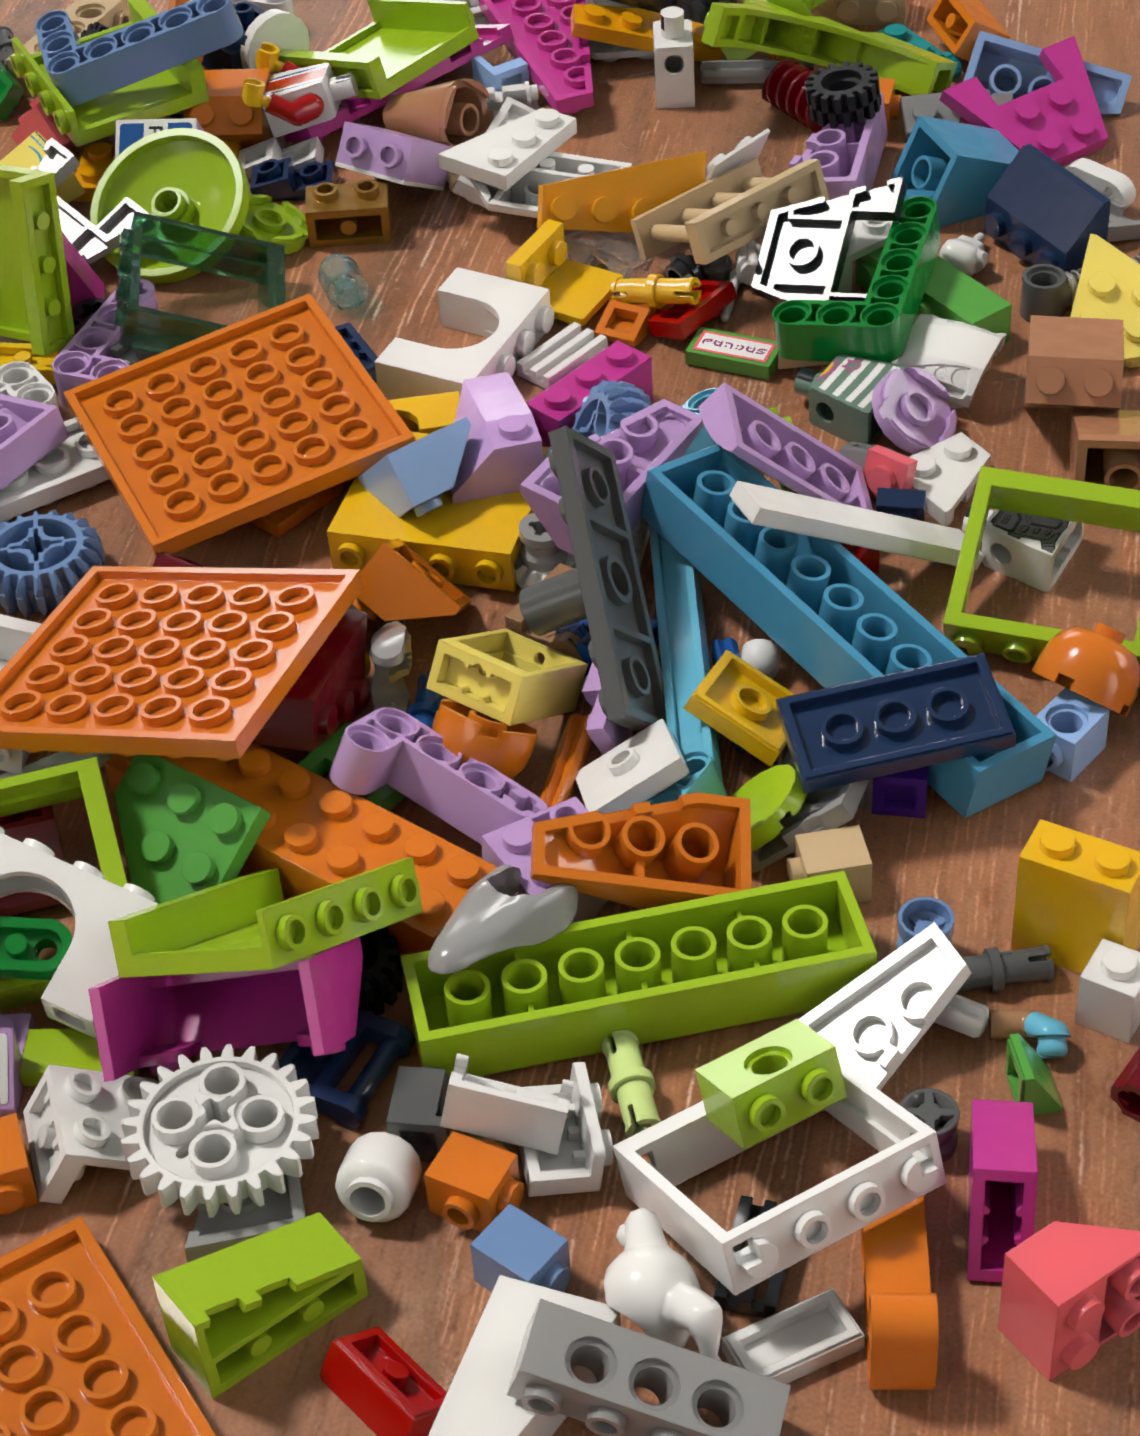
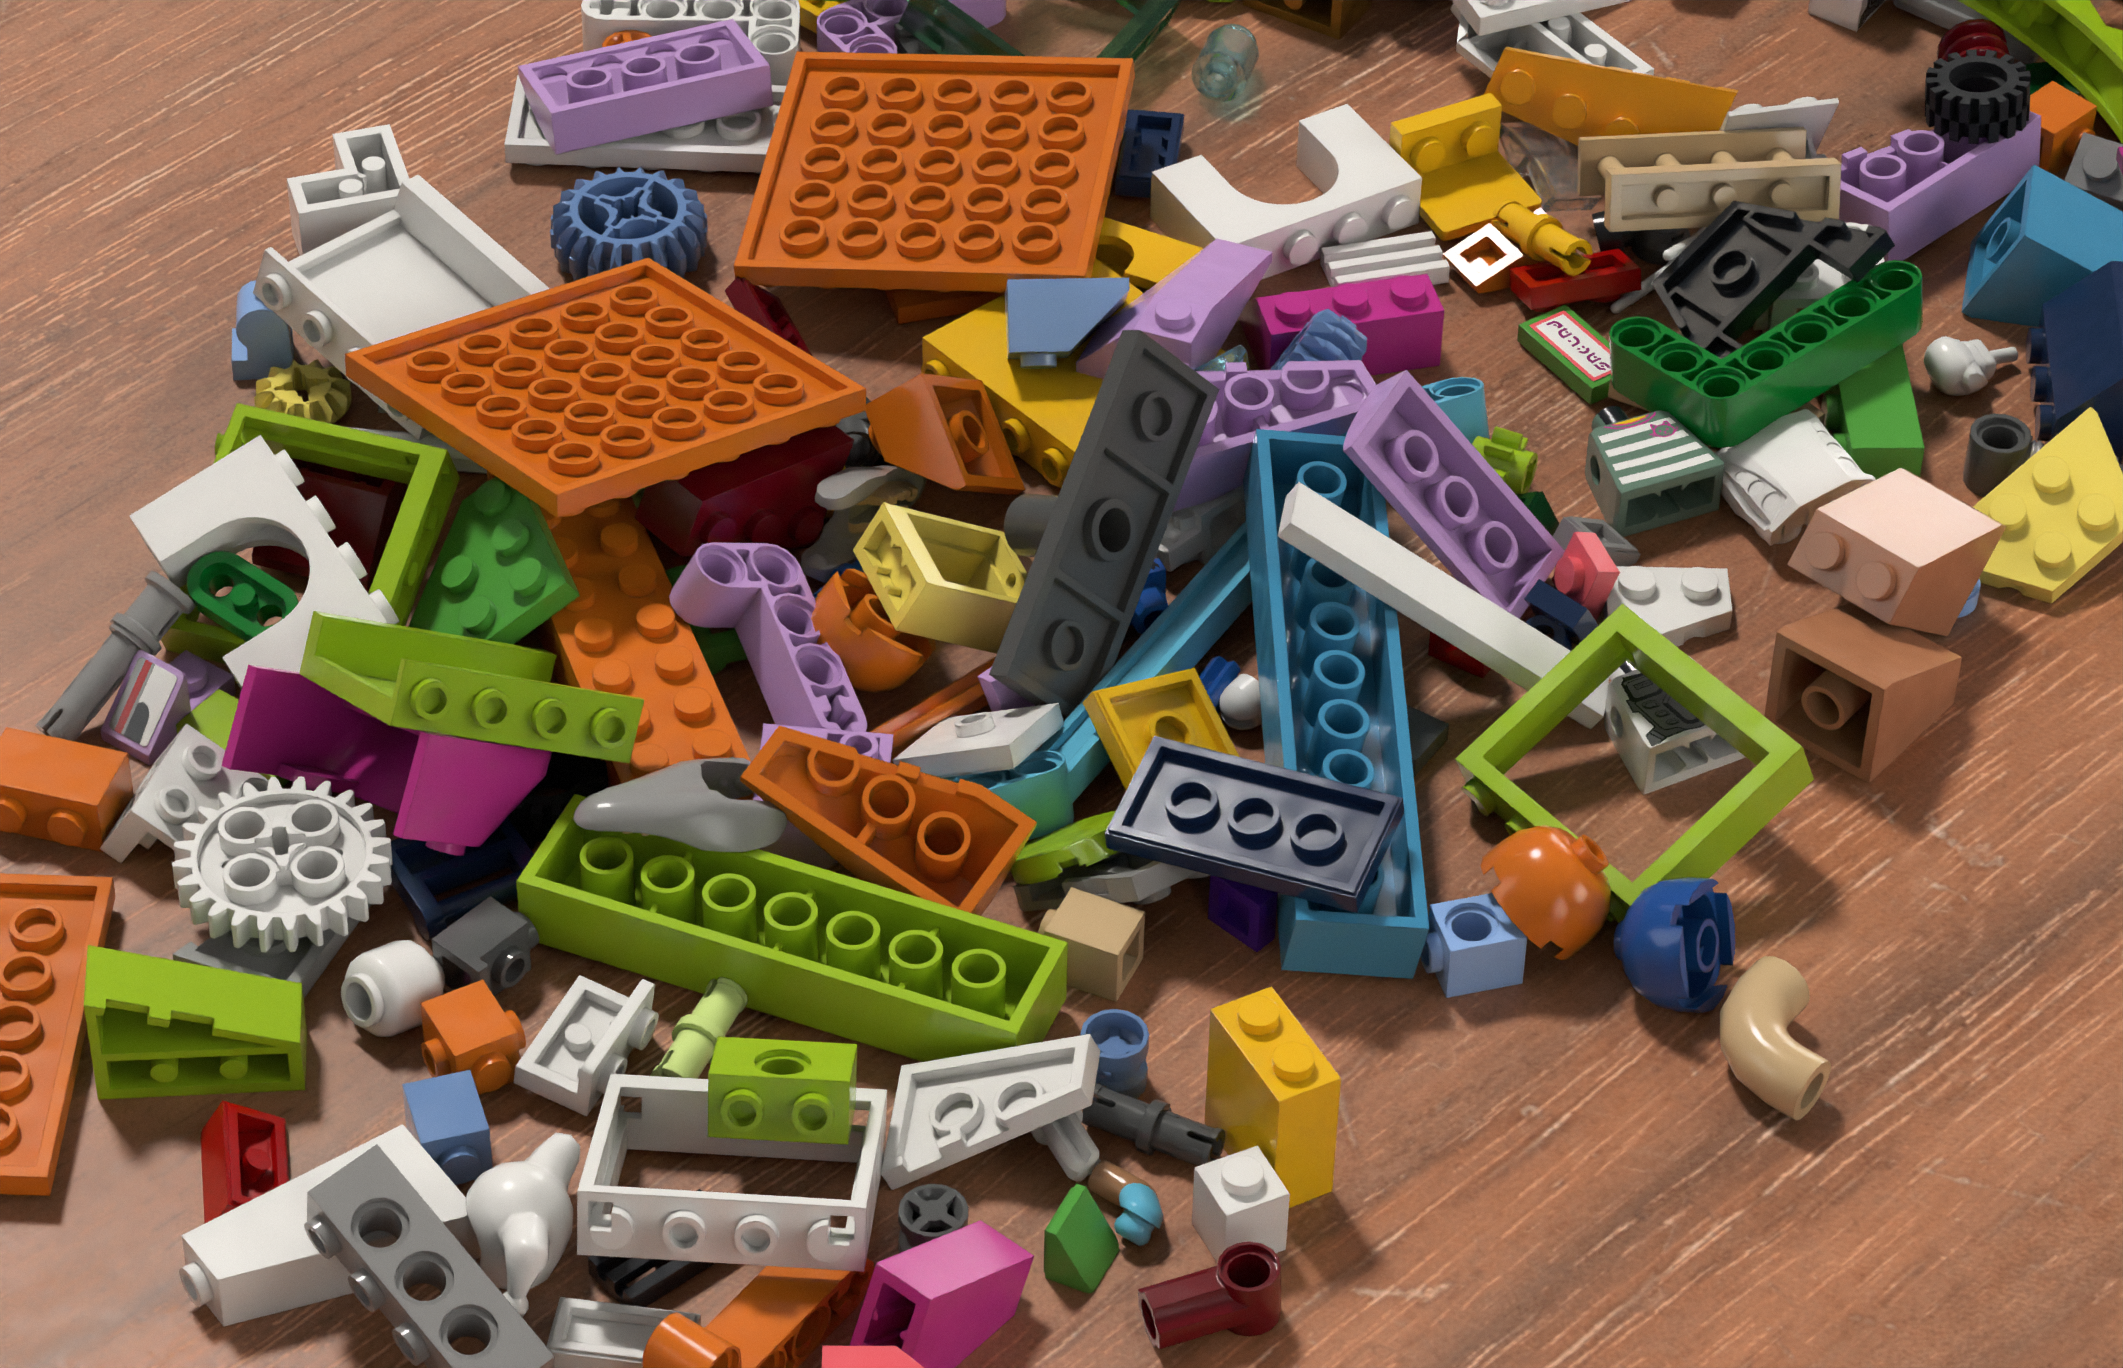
camera: 30 degrees right, 0 degrees up
(505, 1110) = (541, 984): white hinge -> none
(913, 409) = (1687, 514): lavender tile -> none

